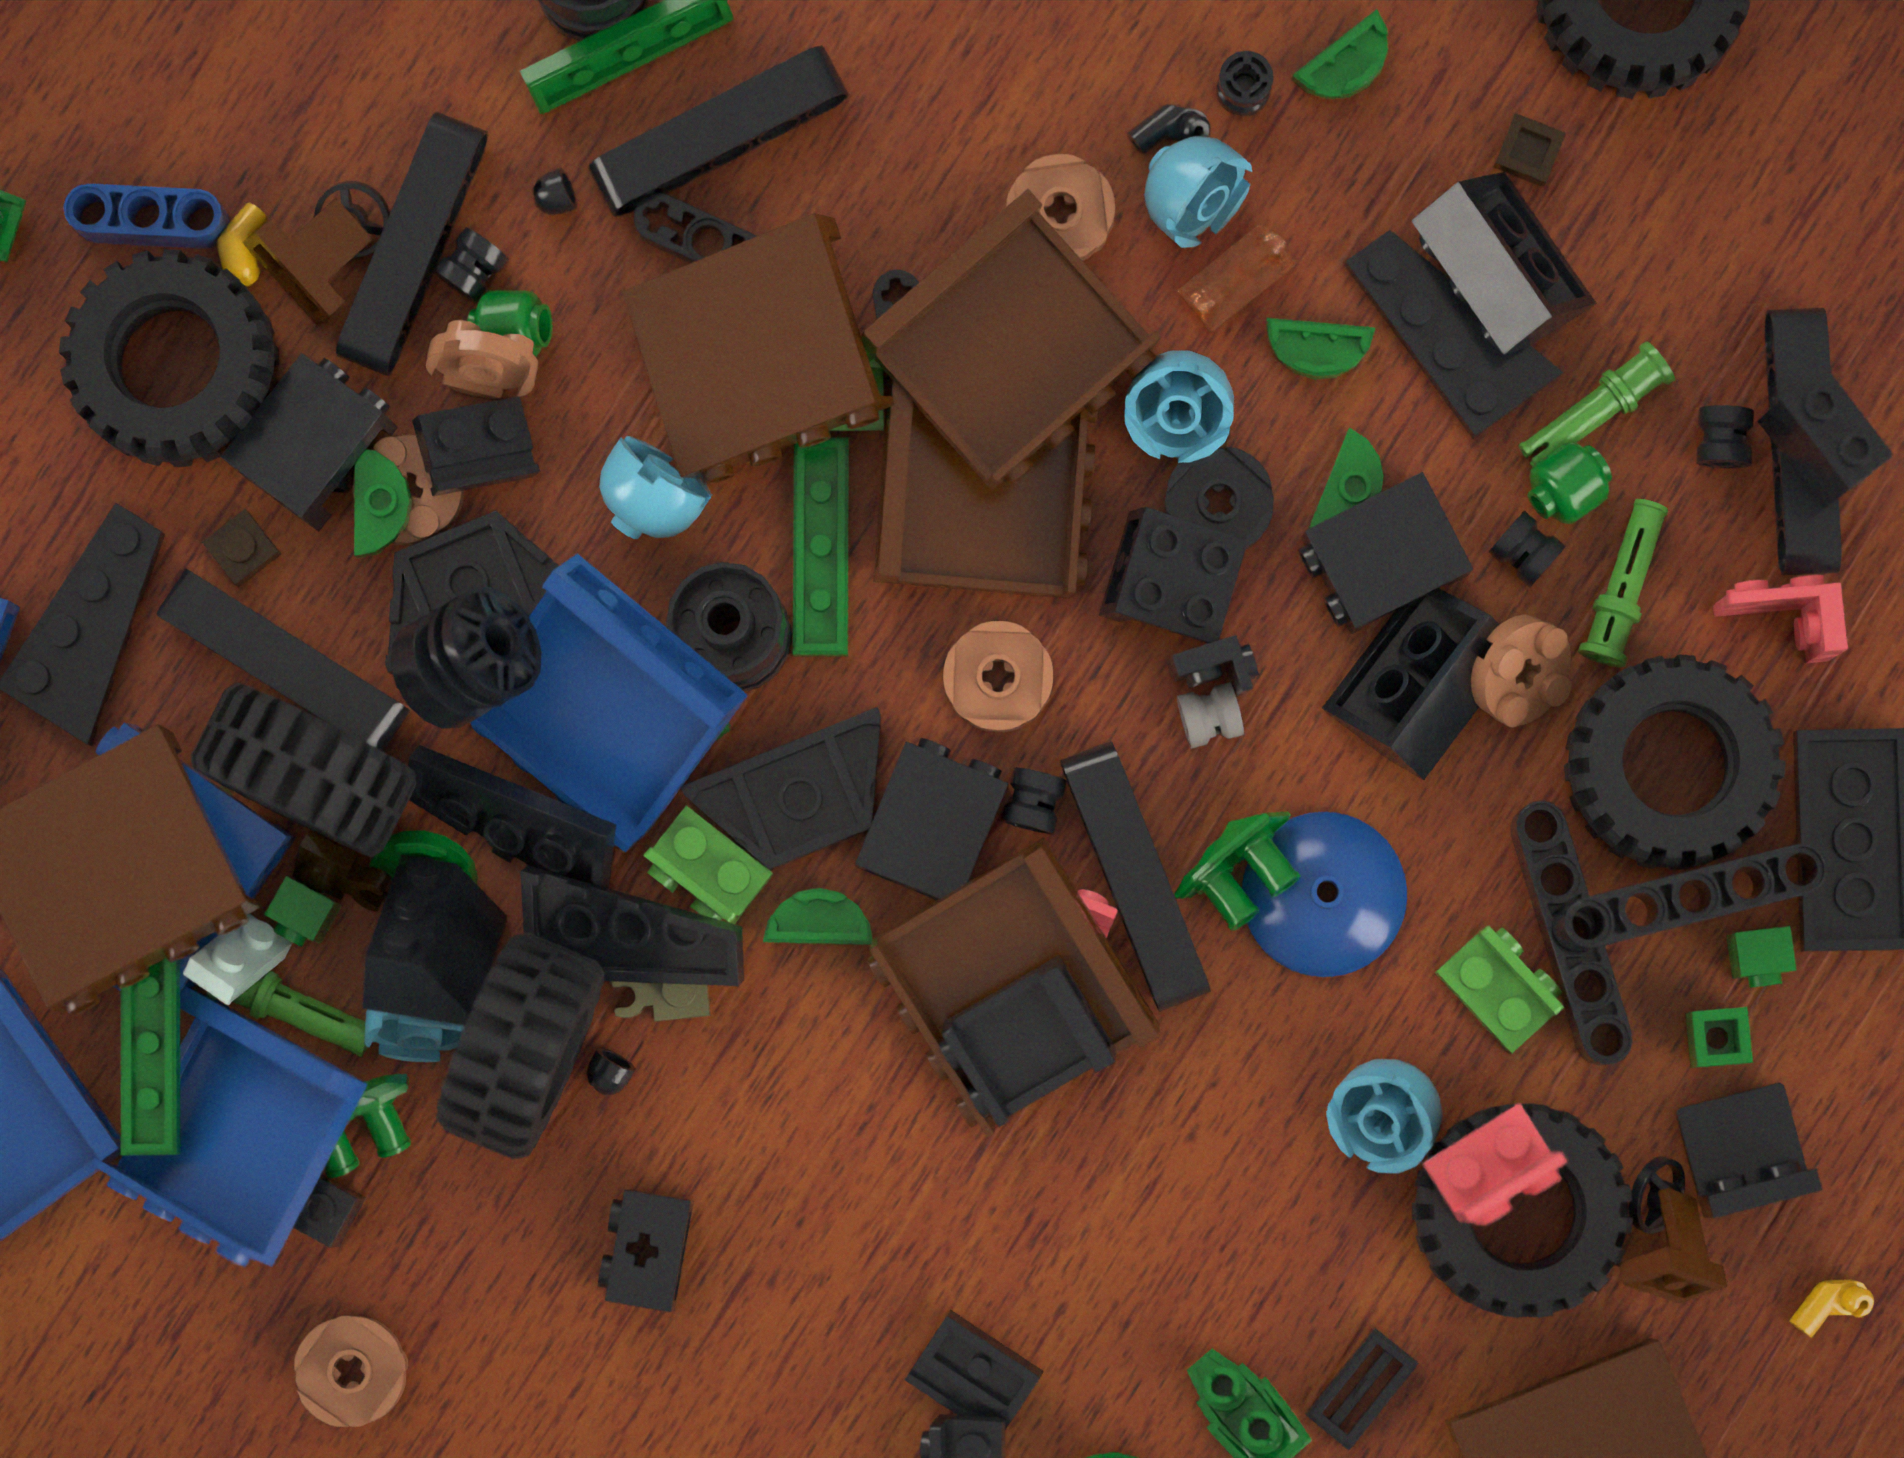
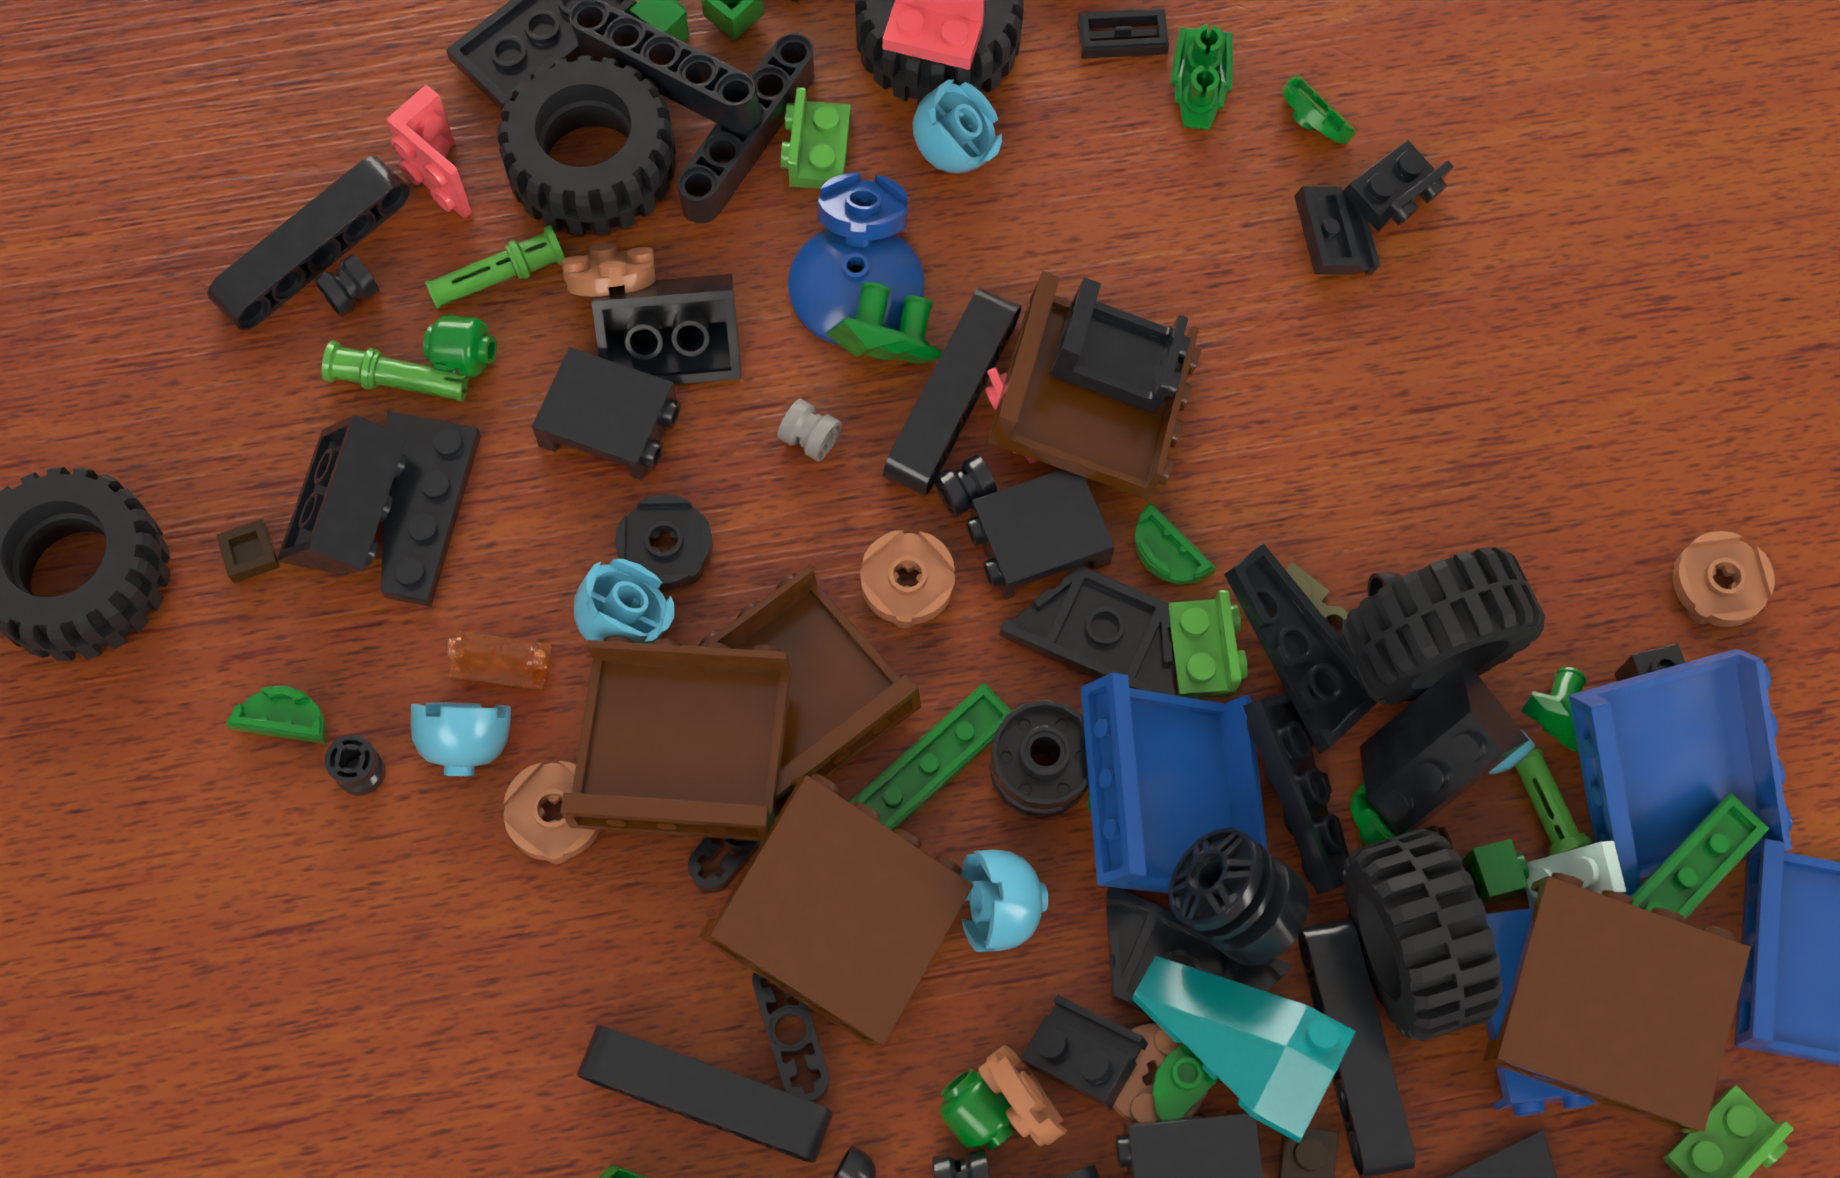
camera: 140 degrees left, 15 degrees down
(347, 565) = (1254, 1041): none -> teal wedge
(658, 1281) = (1466, 468): black brick -> none
(1169, 123) = (425, 792): black arm -> none
(1173, 575) = (743, 526): black bracket -> none
(1205, 663) = (777, 445): black bracket -> none
(1316, 347) = (504, 569): green plate -> none
(1353, 478) = (578, 477): green plate -> none
(1368, 931) = (862, 208): none -> blue plate
(1527, 549) = (526, 338): black wheel -> none
(1825, 437) = (301, 187): black panel -> none

